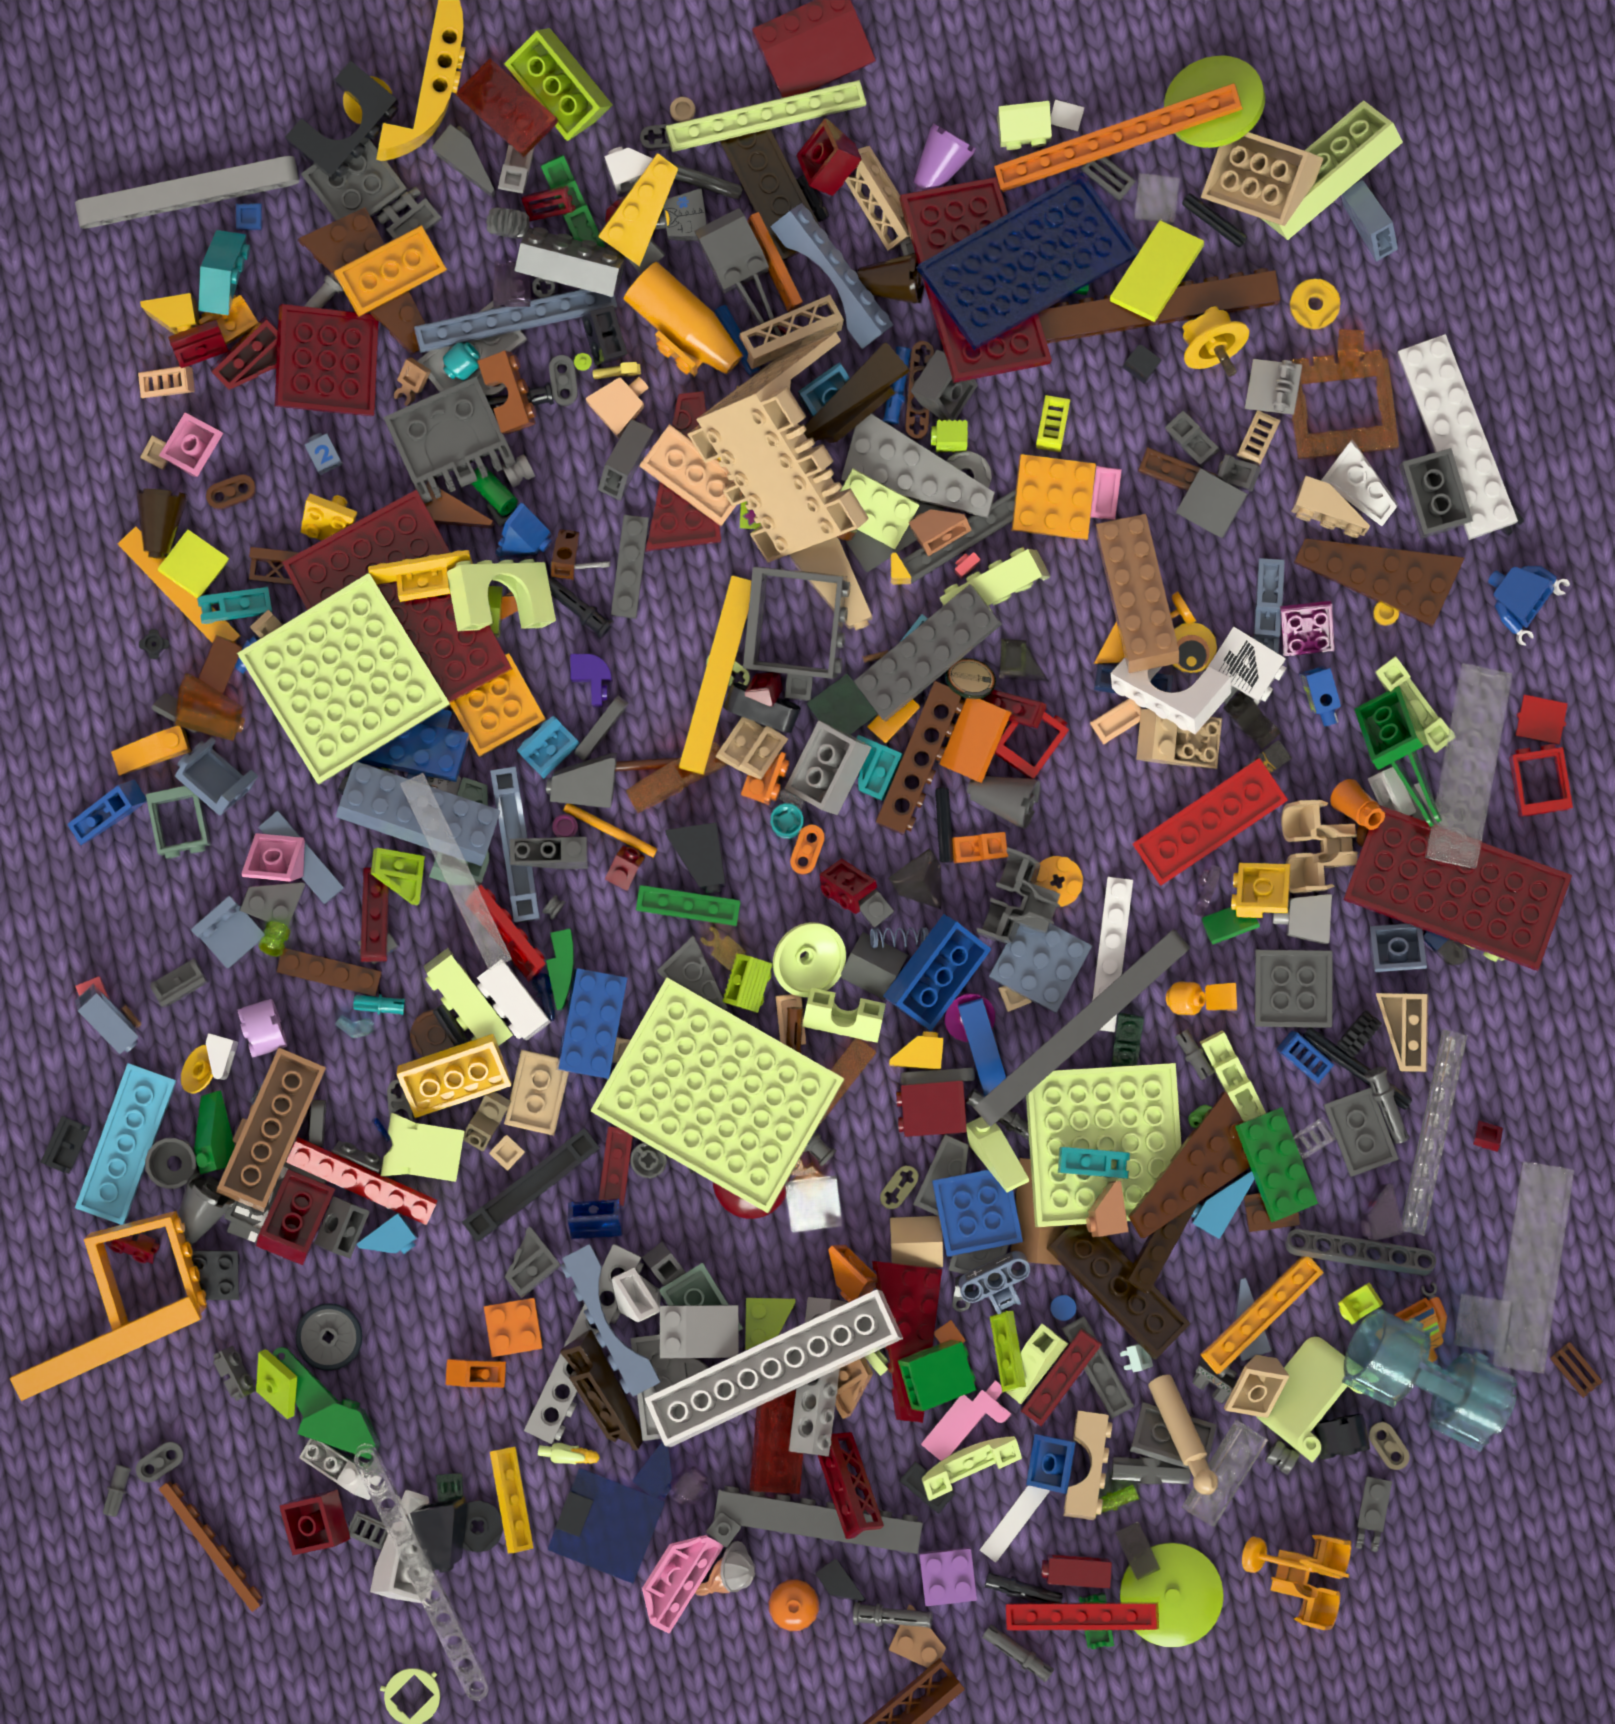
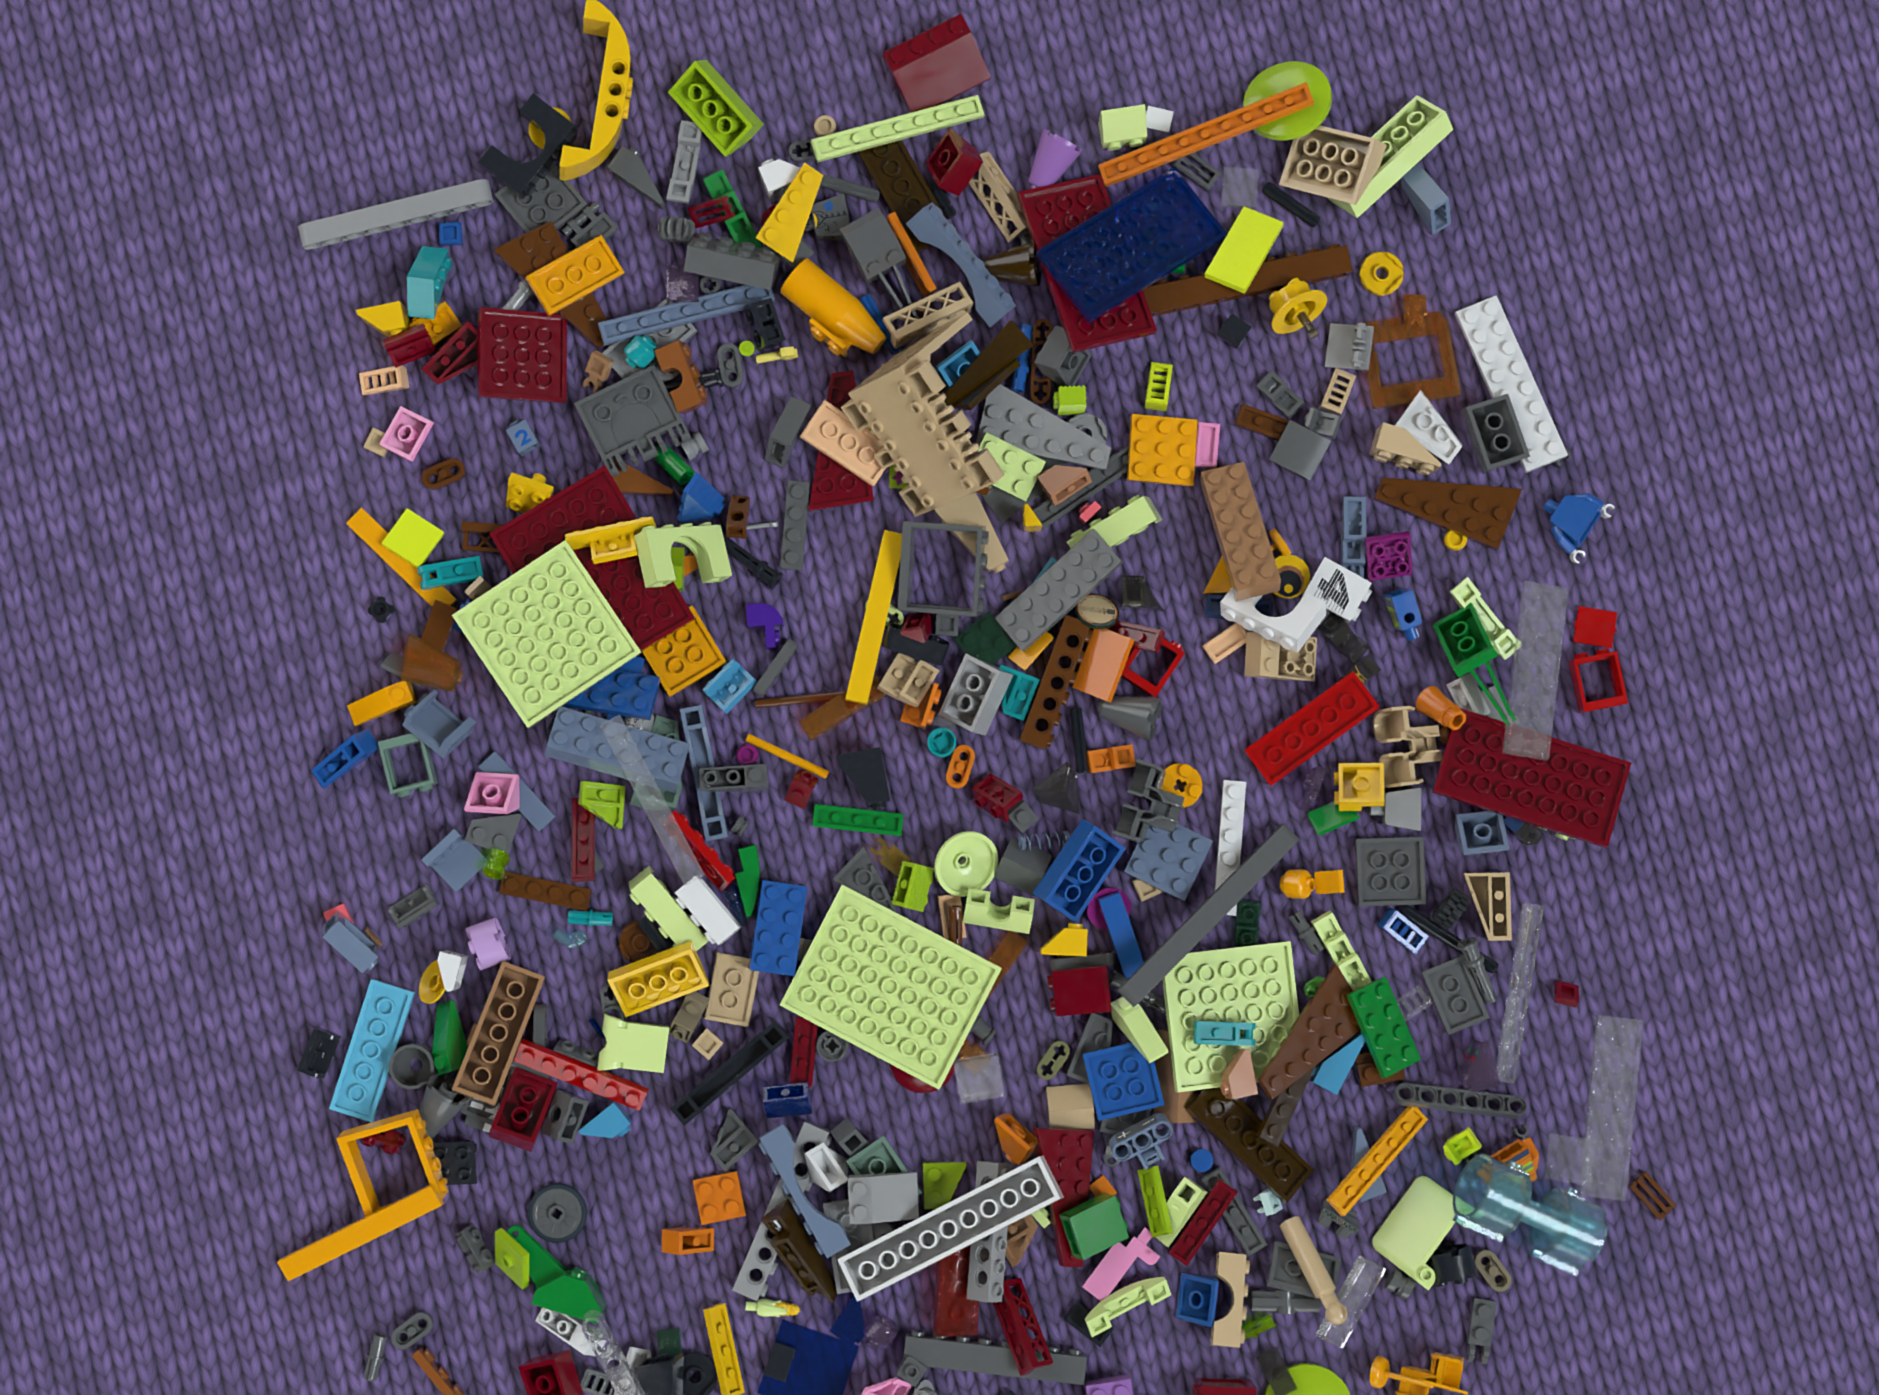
camera: 10 degrees left, 0 degrees up
(159, 519) = (381, 500): dark brown cone -> none
(506, 107) = (671, 129): clear red plate -> none
(585, 783) = (763, 716): slope -> none
(618, 403) = (779, 383): light nougat torso -> none
(1013, 1522) = (1165, 1351): white sticker -> none
(1258, 1387) = (1377, 1225): tan slope -> none

